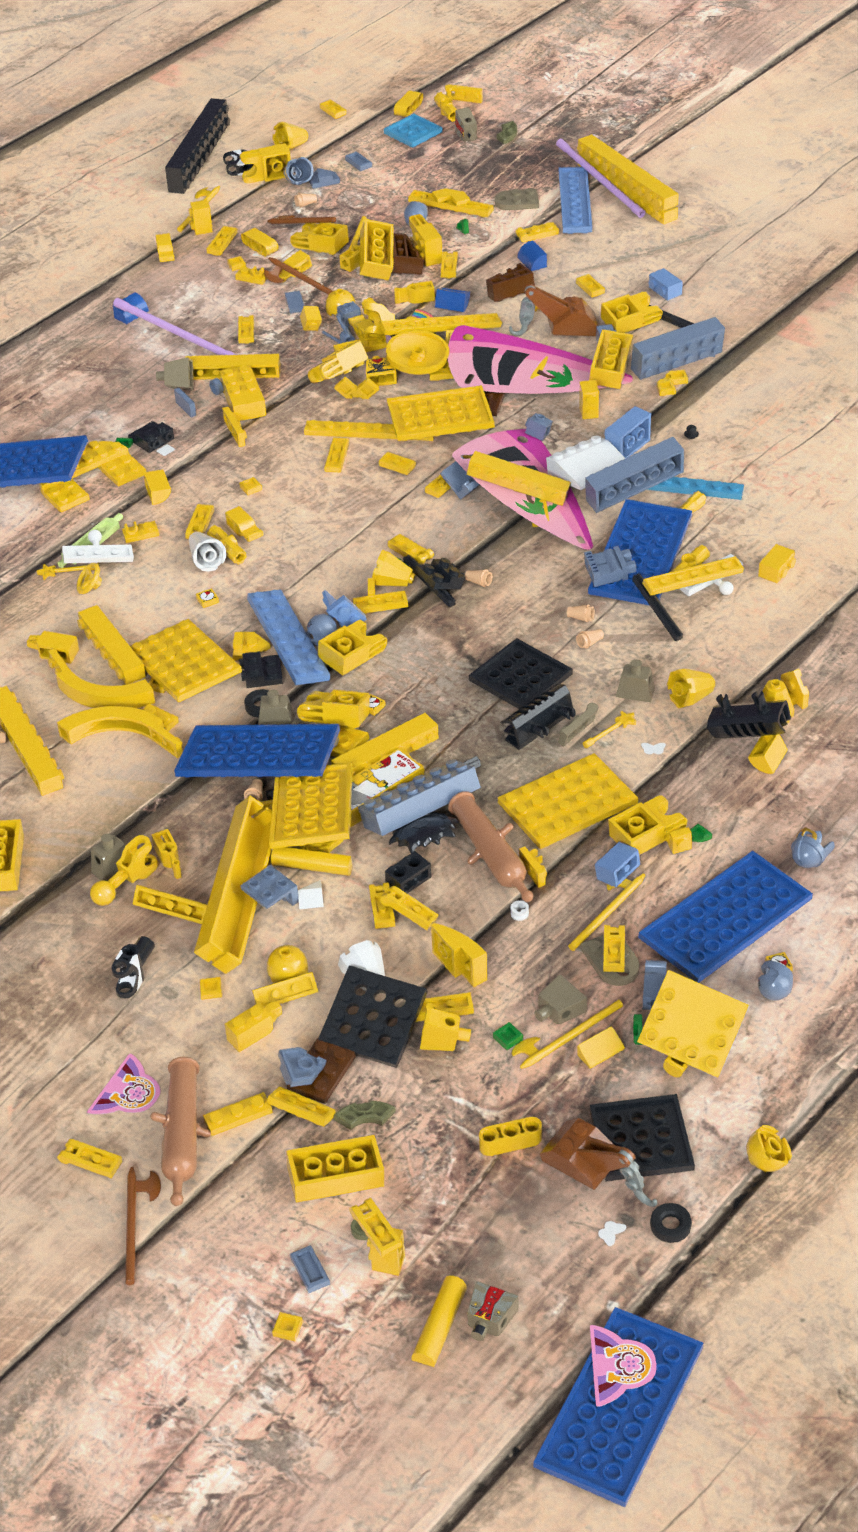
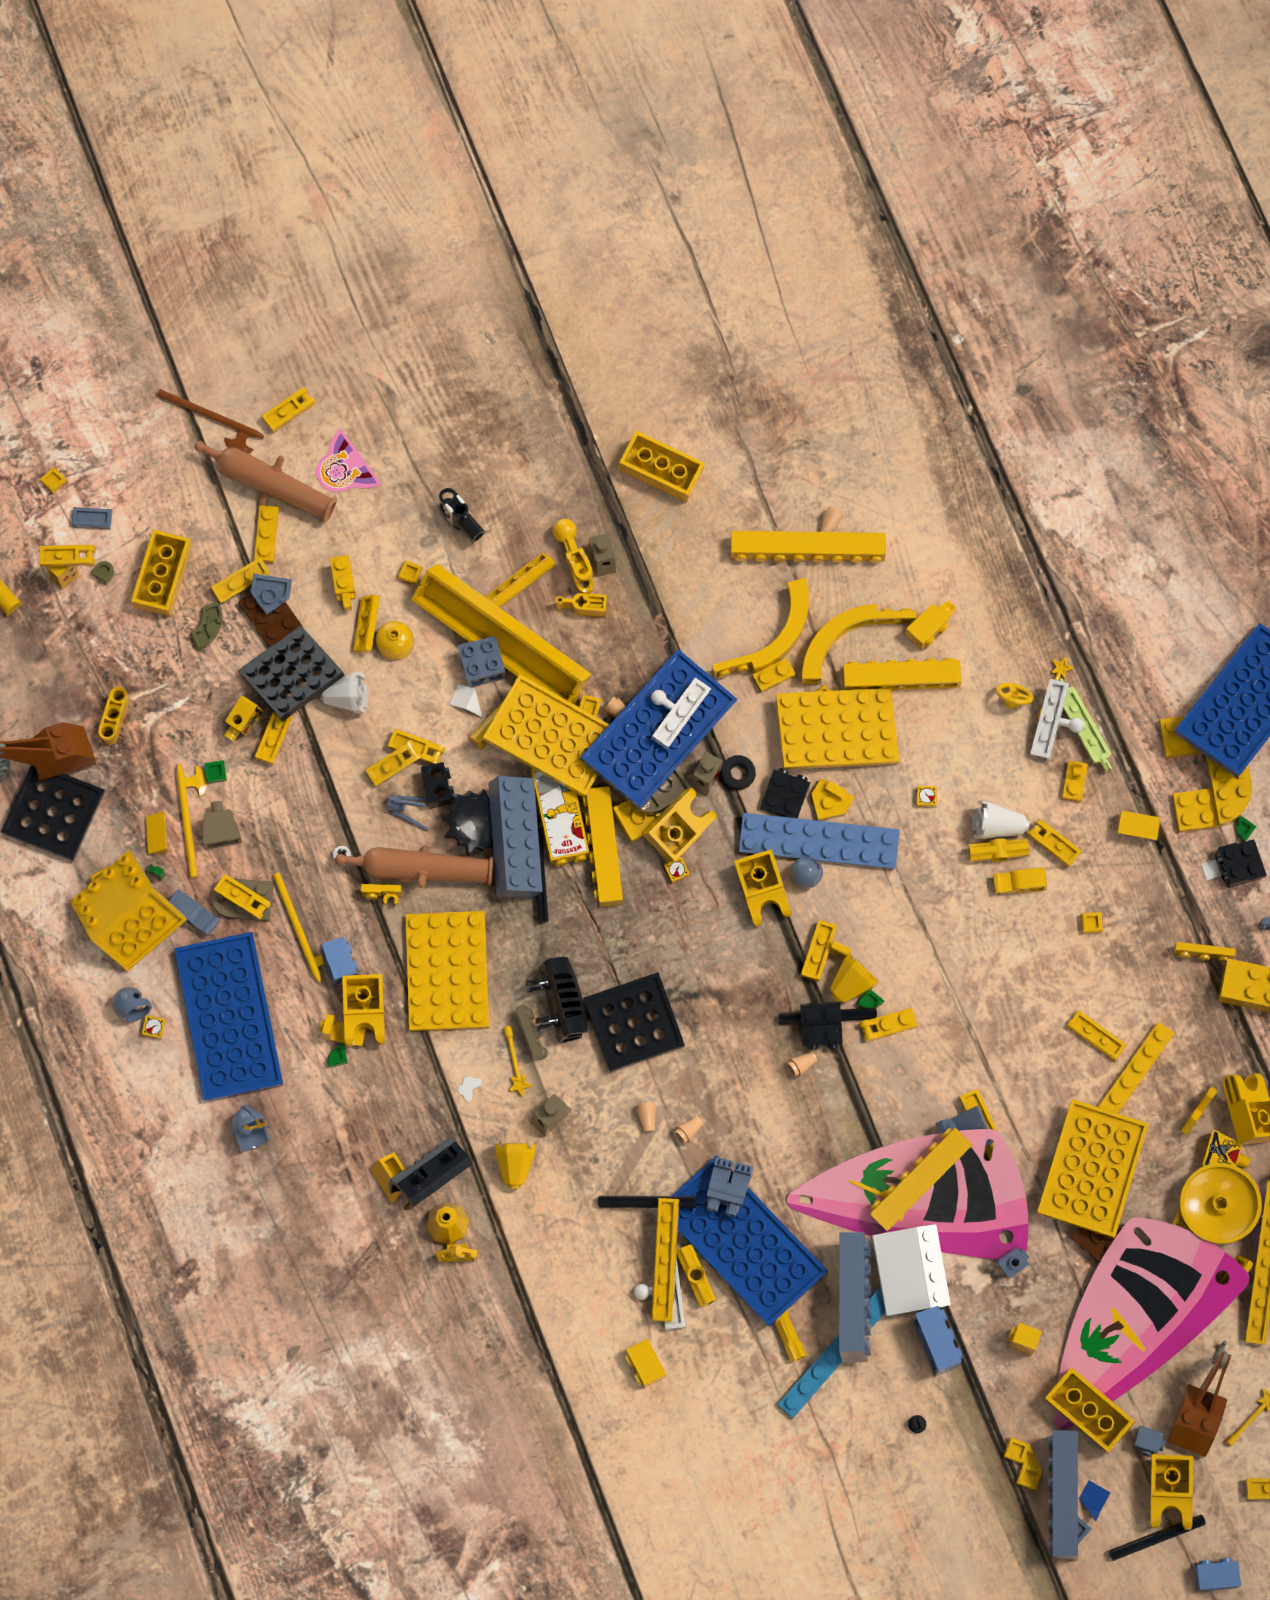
camera: 115 degrees right, 30 degrees up
(234, 737) = (679, 712): none -> white plate
(342, 609) = (819, 899): medium blue bracket -> none
(397, 463) = (1040, 1085): yellow plate -> none
(444, 893) = (398, 804): none -> sand blue plant
(459, 954) = (312, 771): yellow slope -> none

